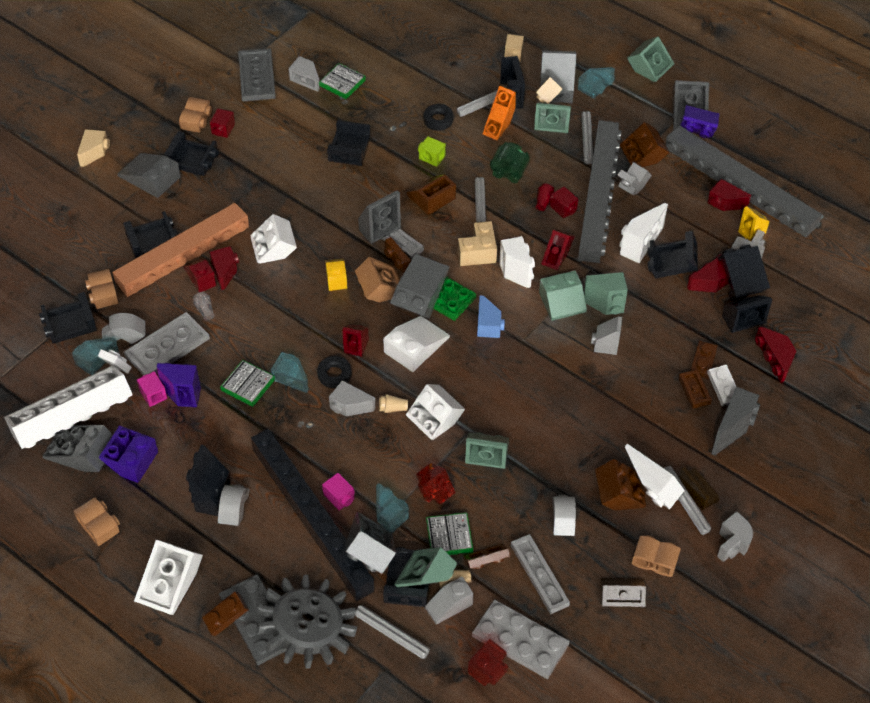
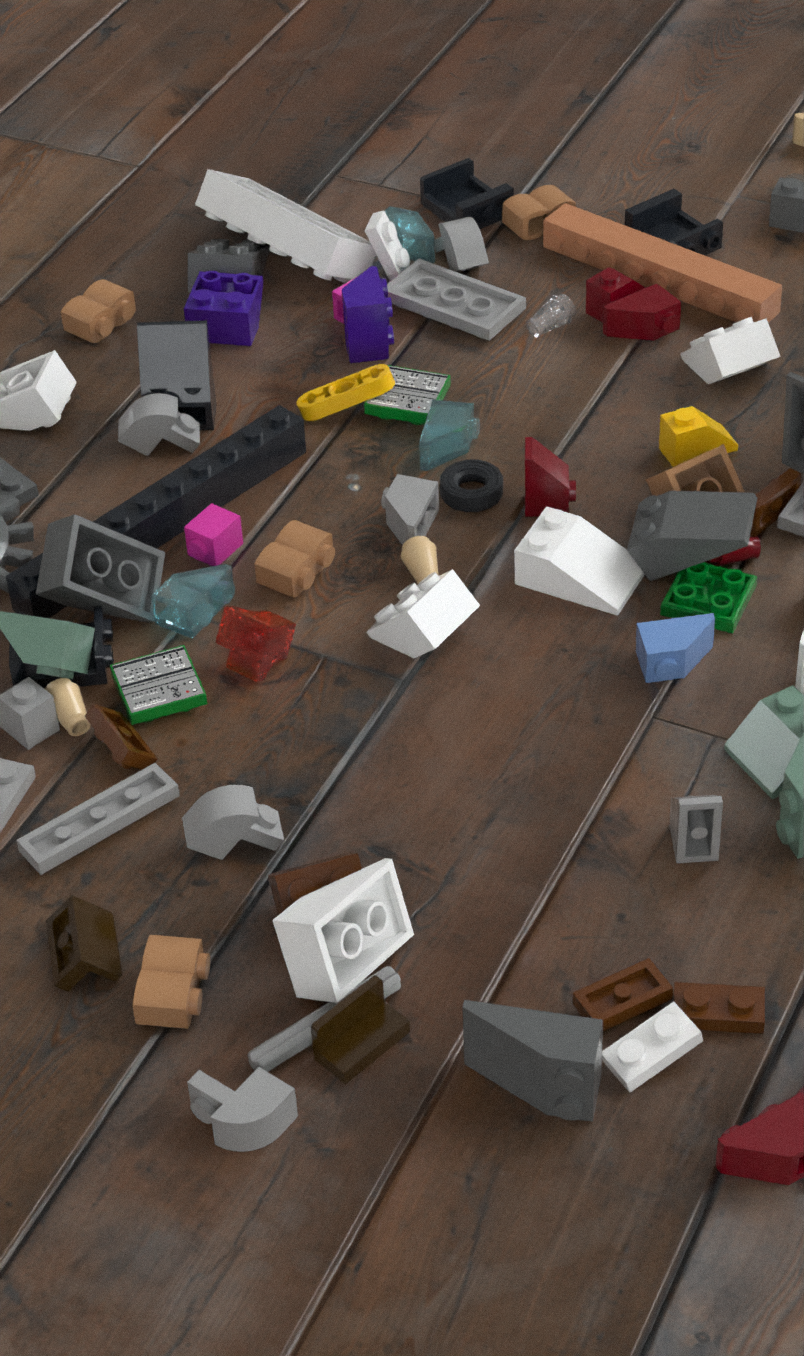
camera: 80 degrees right, 10 degrees down
(244, 416) = (345, 392): none -> yellow beam
(371, 458) = (294, 558): none -> medium nougat brick
(486, 450) = (354, 690): sand green slope -> none

